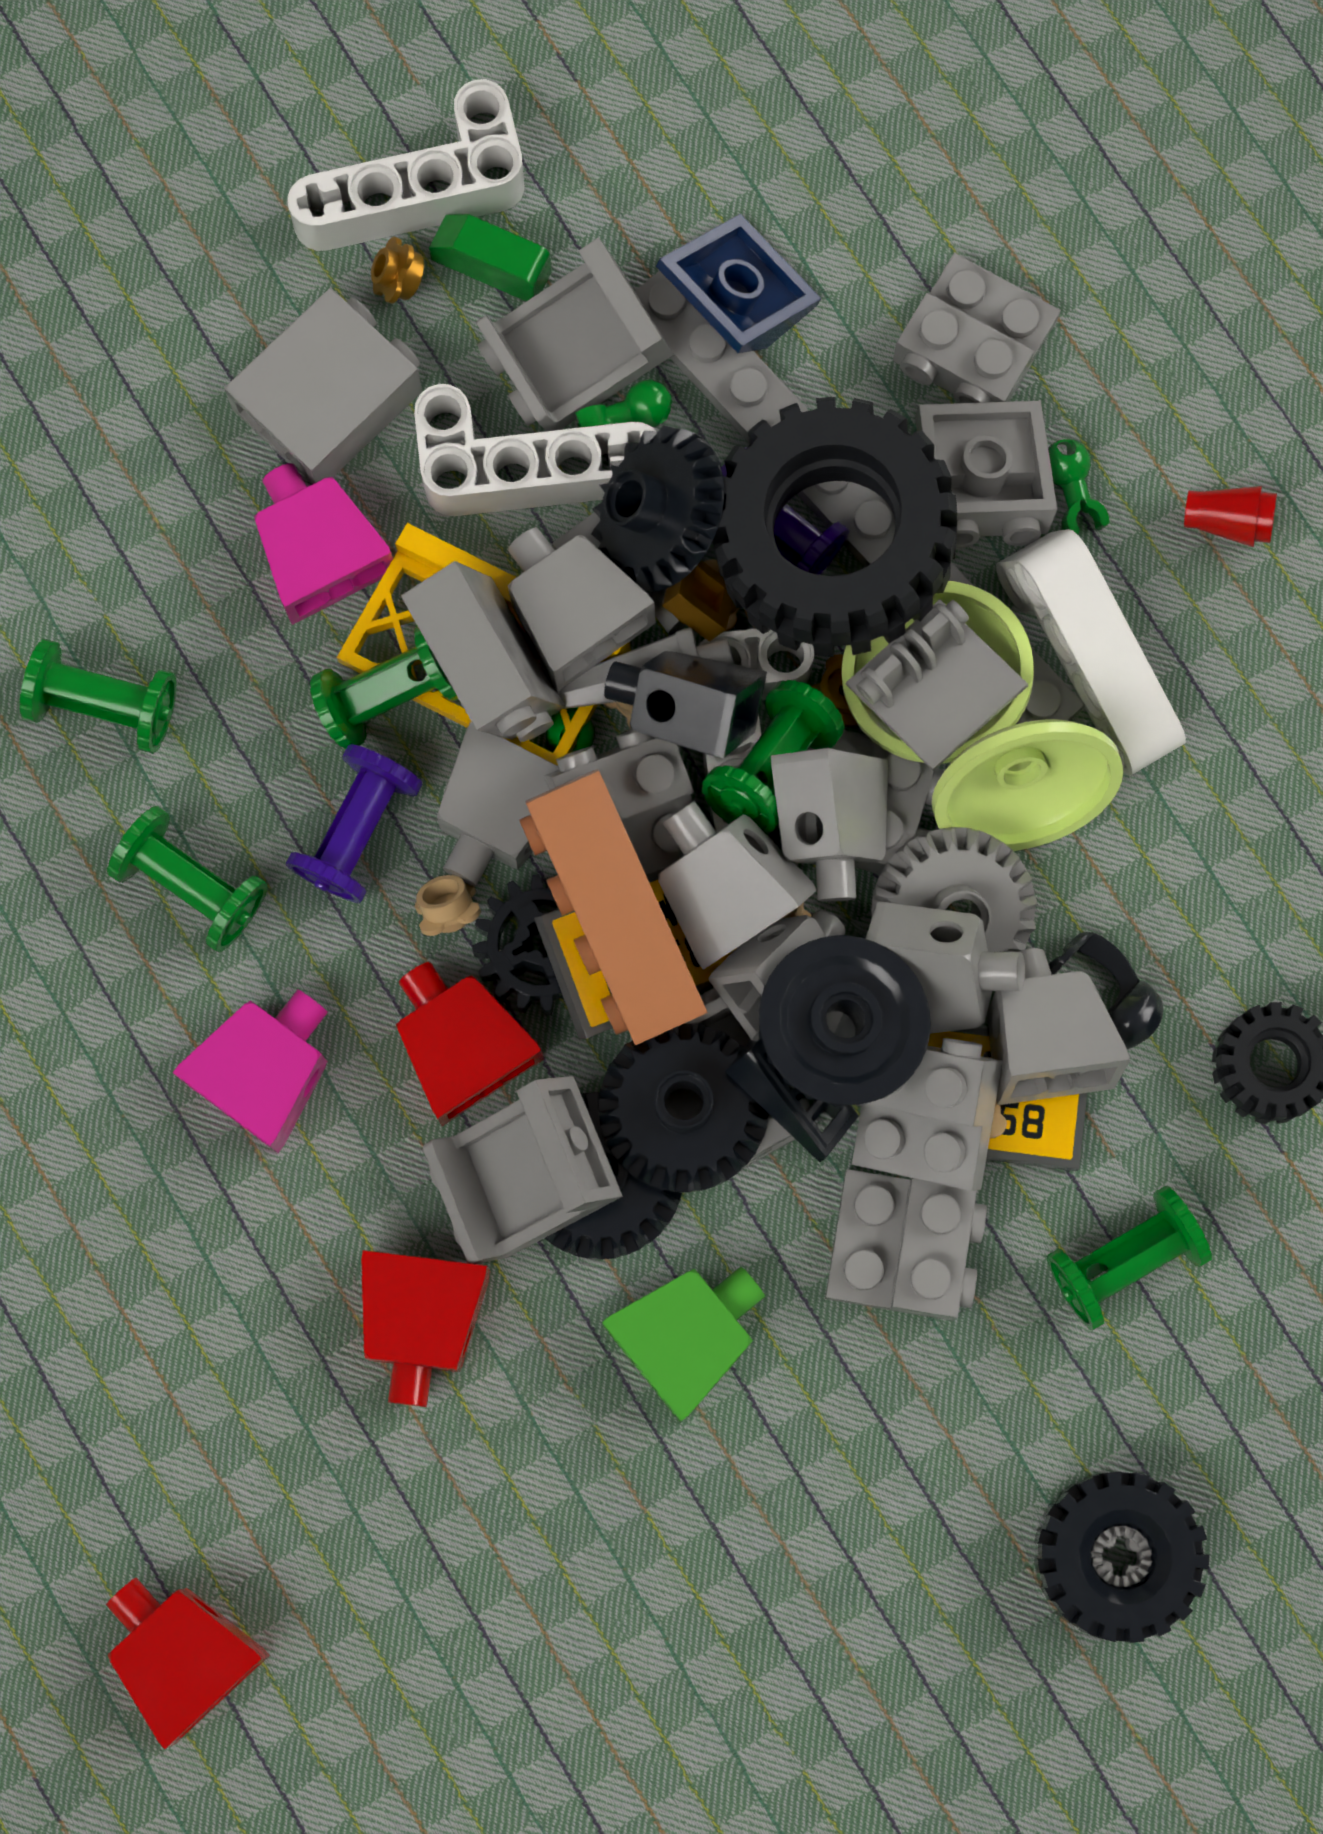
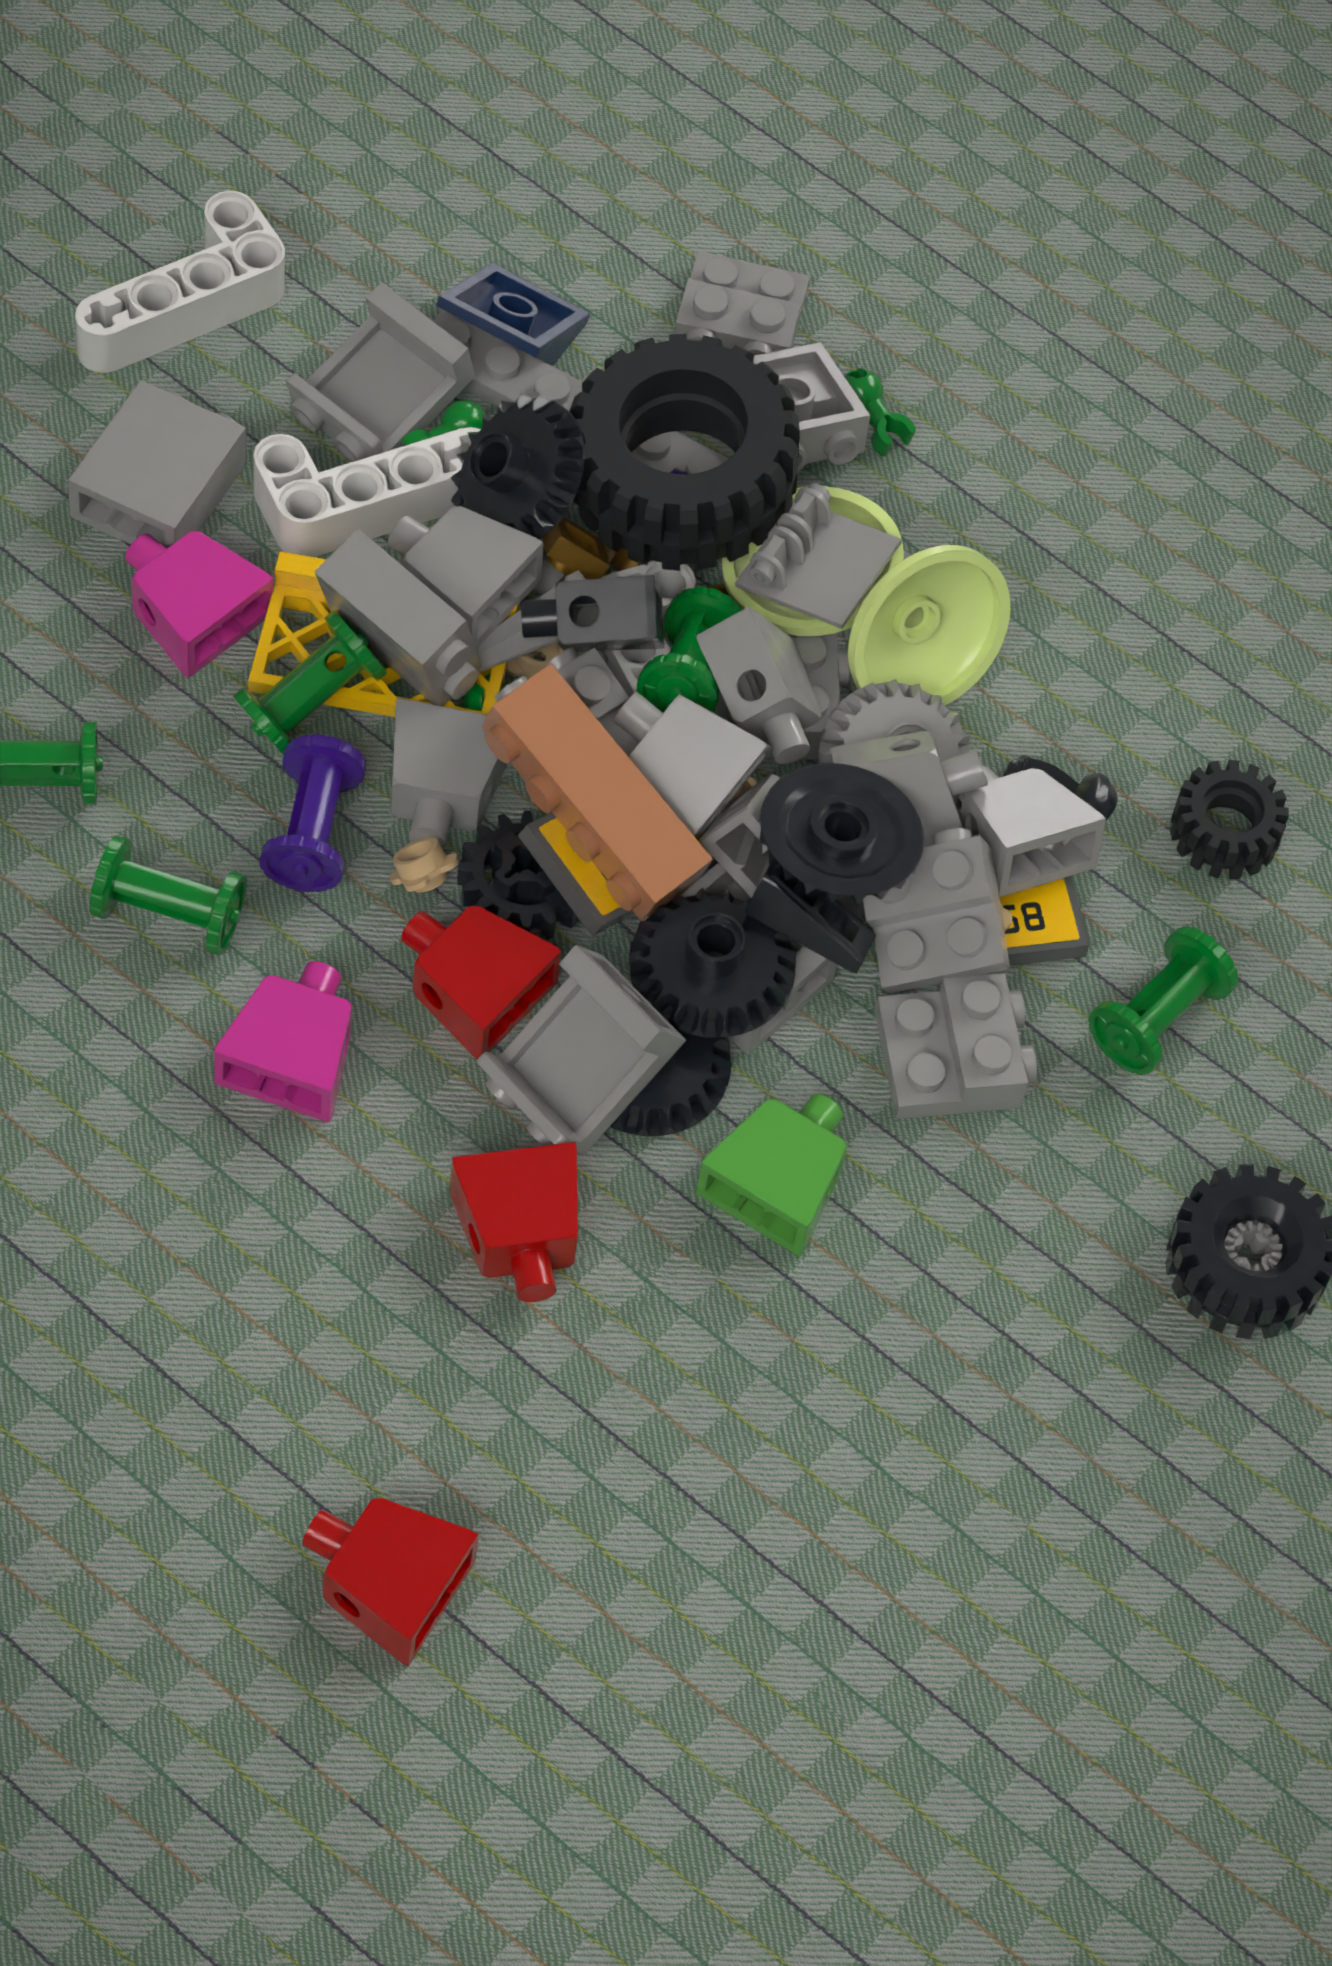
camera: 25 degrees left, 20 degrees down
(397, 271) = (193, 364): pearl gold plate -> none
(491, 255) = (276, 335): green piece -> none
(1094, 645) = (939, 506): white beam -> none
(1233, 513) = (1023, 399): red cone -> none

